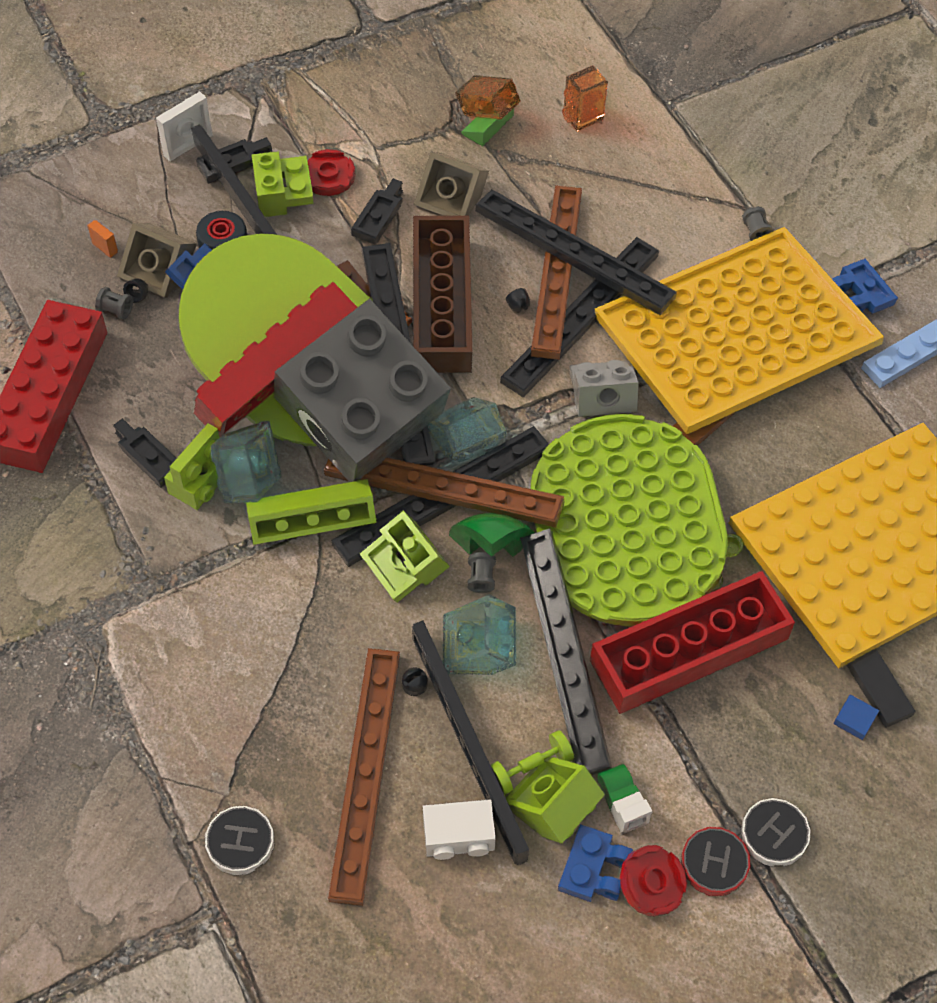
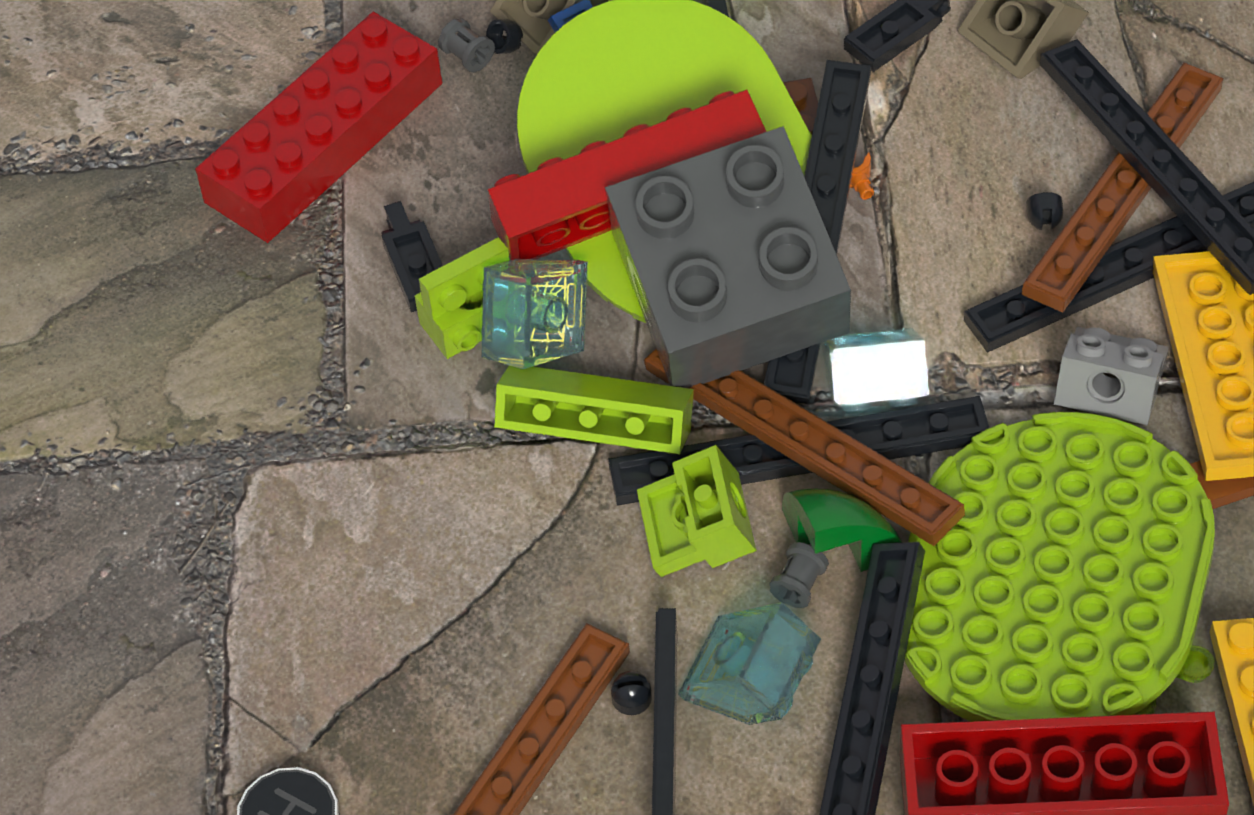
camera: 30 degrees right, 5 degrees down
(442, 292) = (929, 167): reddish brown brick -> none

